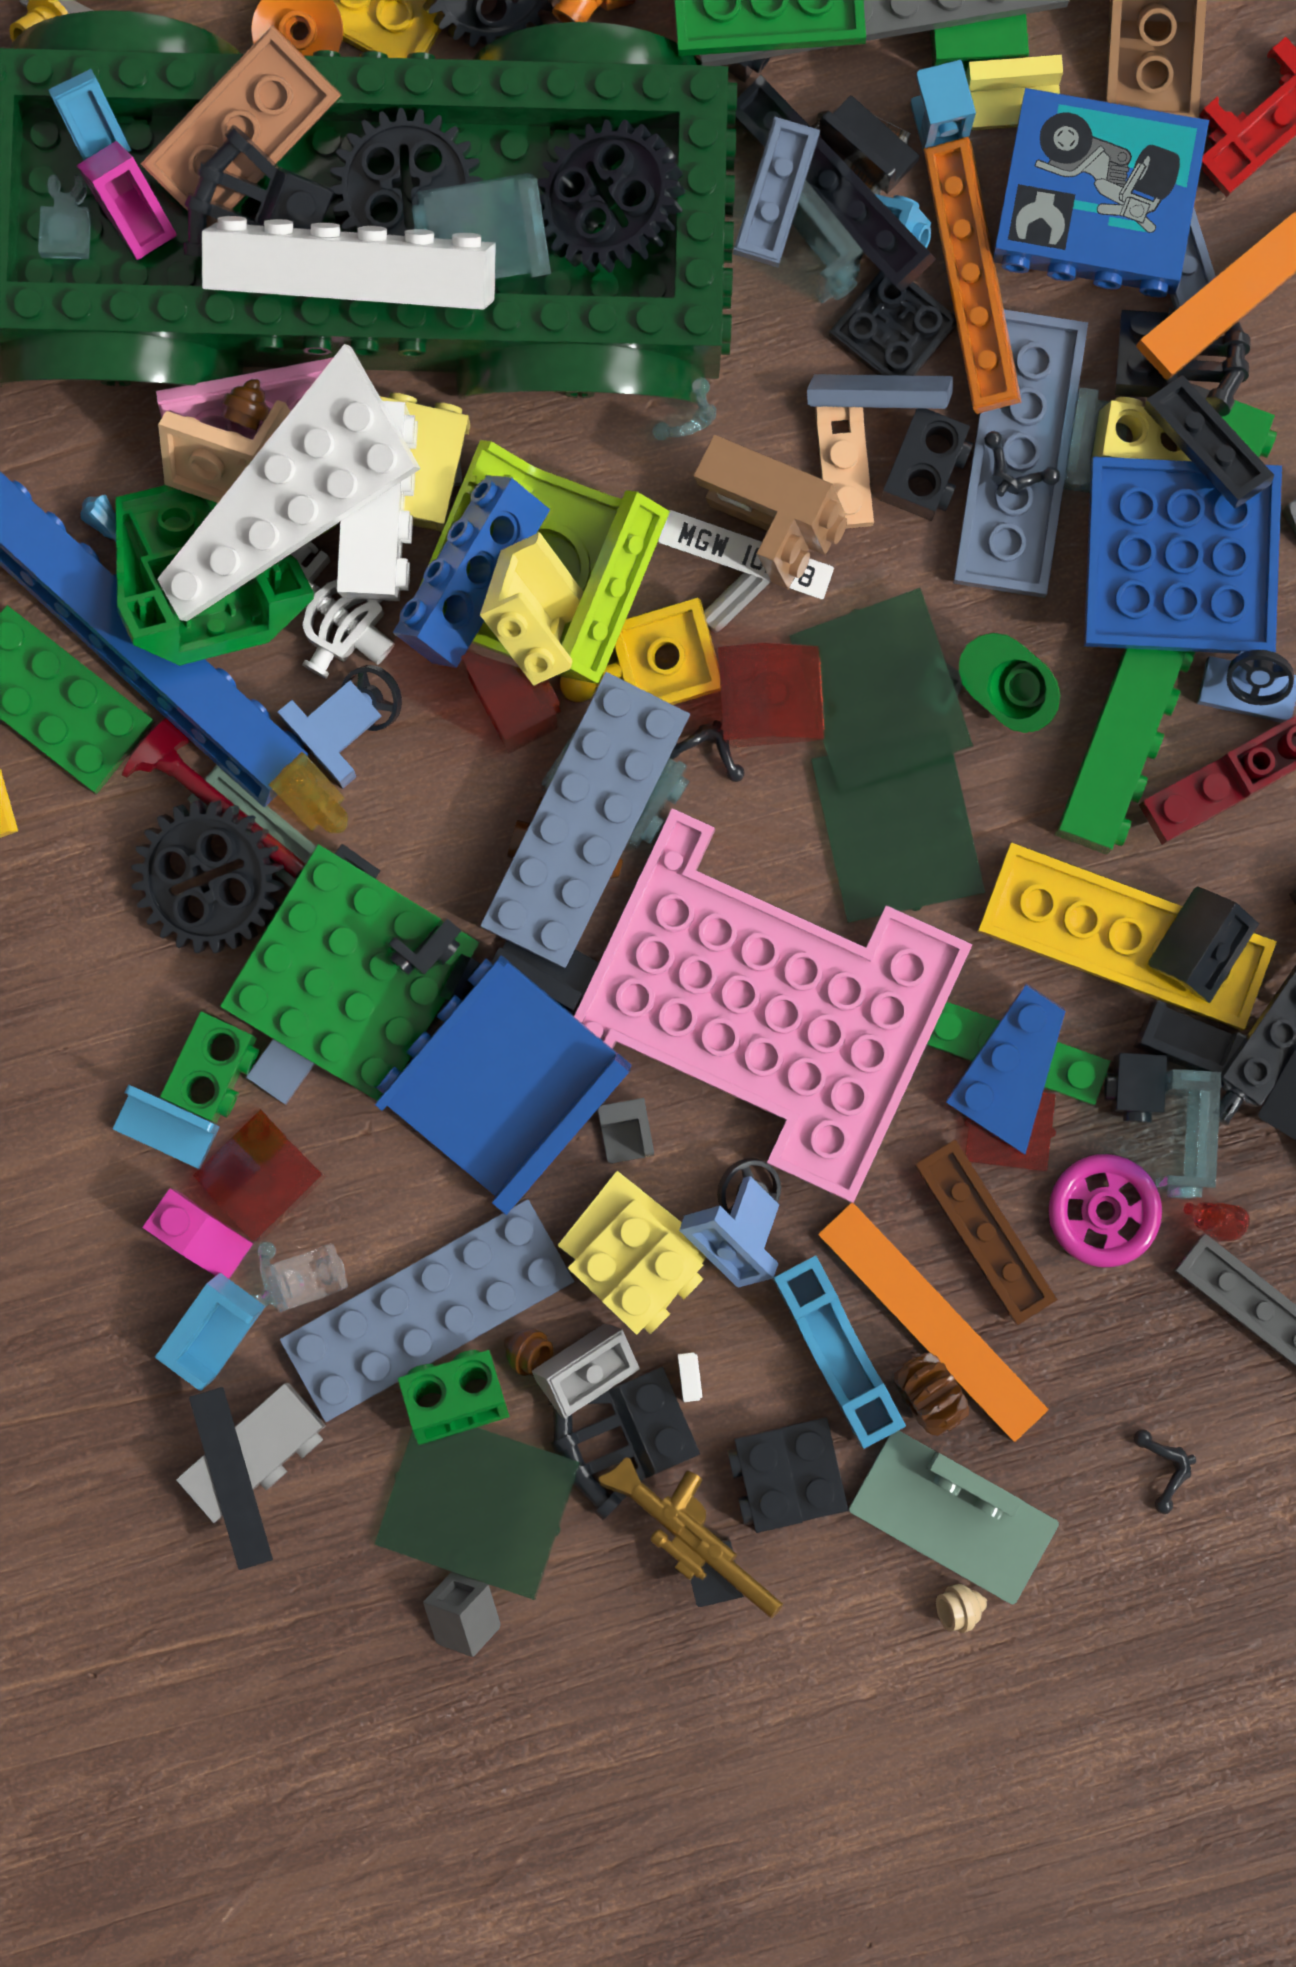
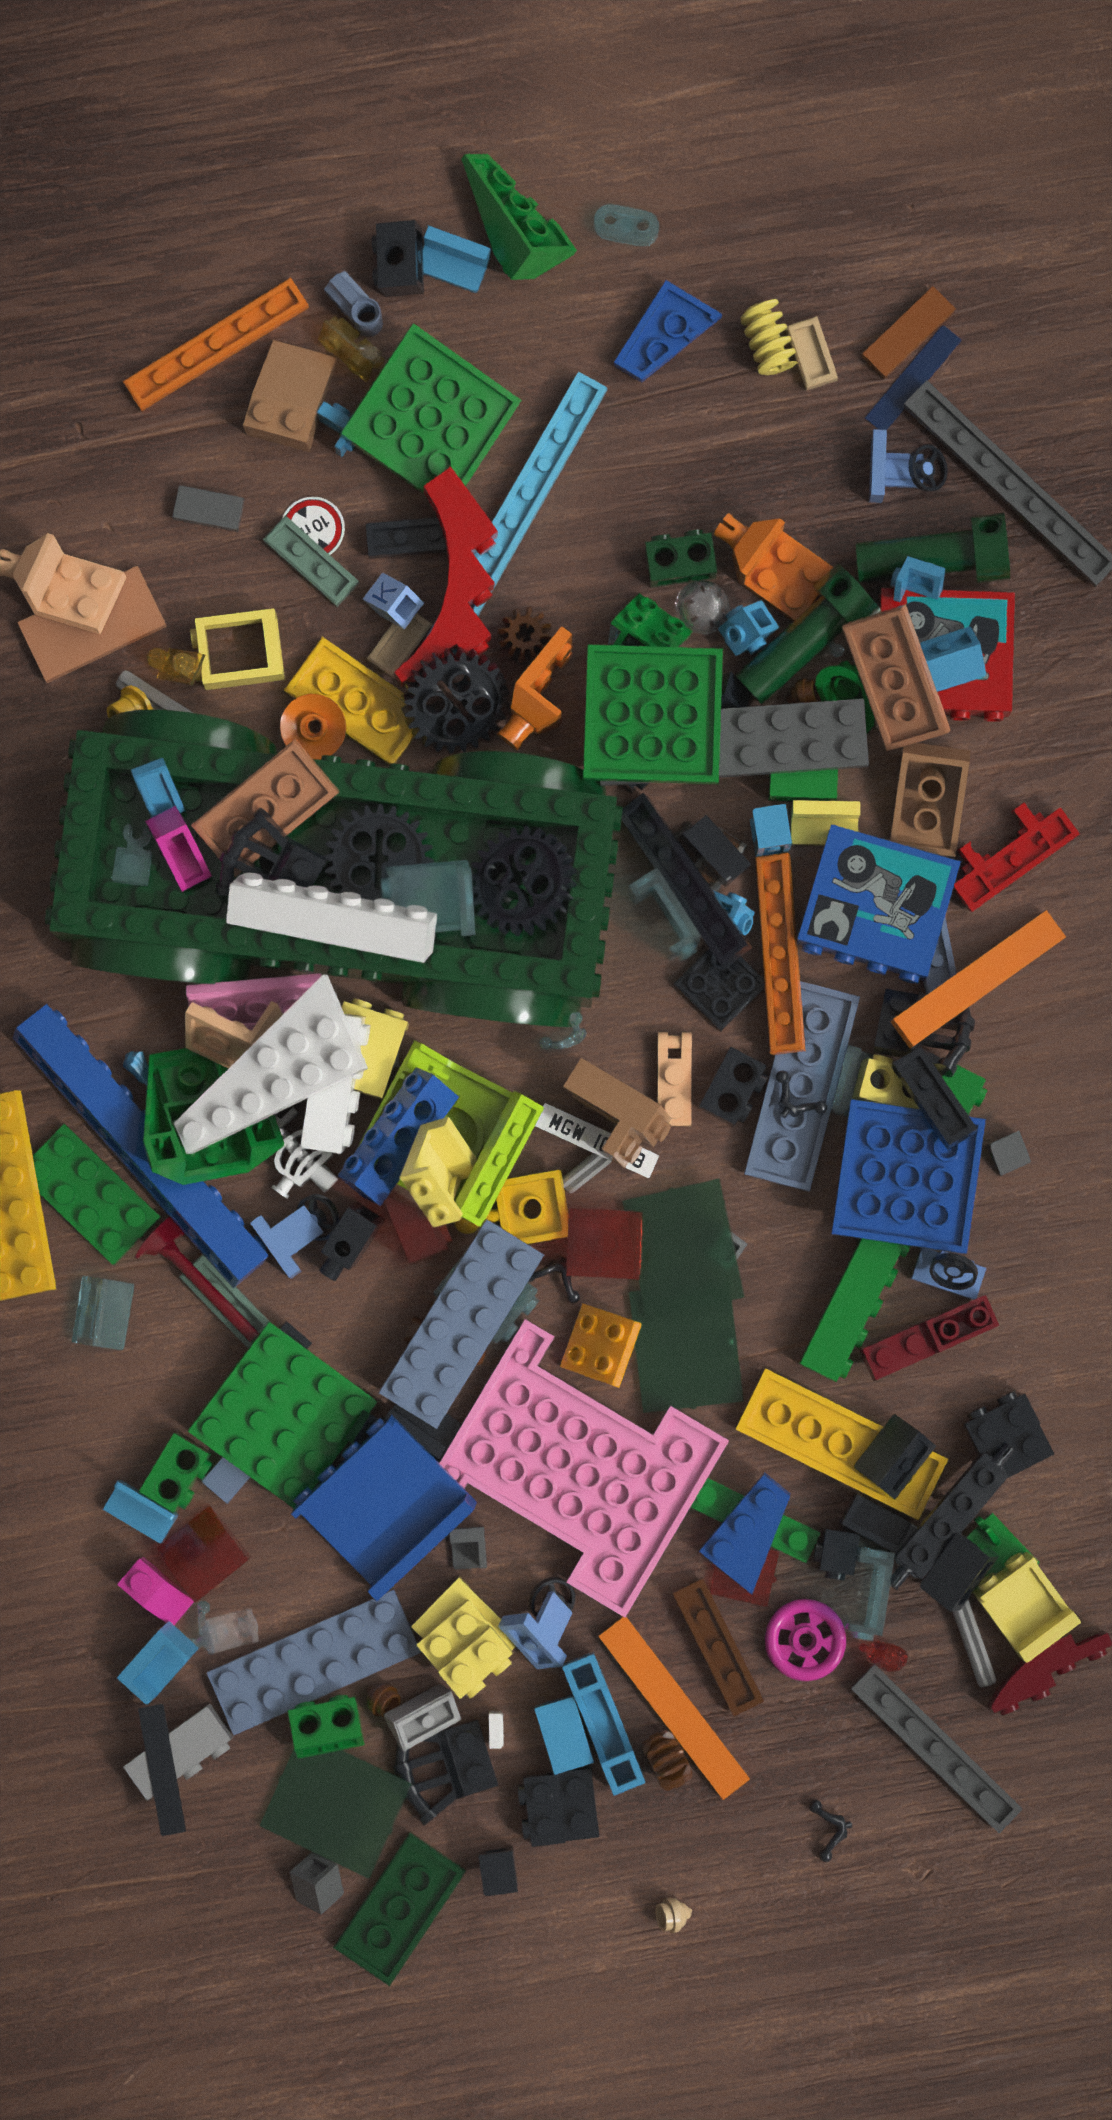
camera: 10 degrees right, 0 degrees up
(86, 859) = (103, 1313): none -> clear light blue panel
(223, 915) = (197, 1365): black gear -> none
(246, 404) = (249, 1004): reddish brown plate -> none
(311, 795) = (268, 1285): clear yellow hinge -> none
(432, 708) = (358, 1229): none -> black torso
(437, 946) = (344, 1405): black bracket -> none
(581, 1639) = (399, 1908): none -> dark green tile
(693, 1542) = (486, 1850): pearl gold piece -> none
(776, 192) = (643, 887): sand blue tile -> none
(780, 833) = (600, 1345): none -> light orange plate
(785, 1373) = (563, 1734): none -> dark azure panel
(880, 391) = (704, 1032): sand blue tile -> none
(954, 1516) = (674, 1849): sand green bracket -> none
(1009, 682) = (776, 1253): green piece -> none

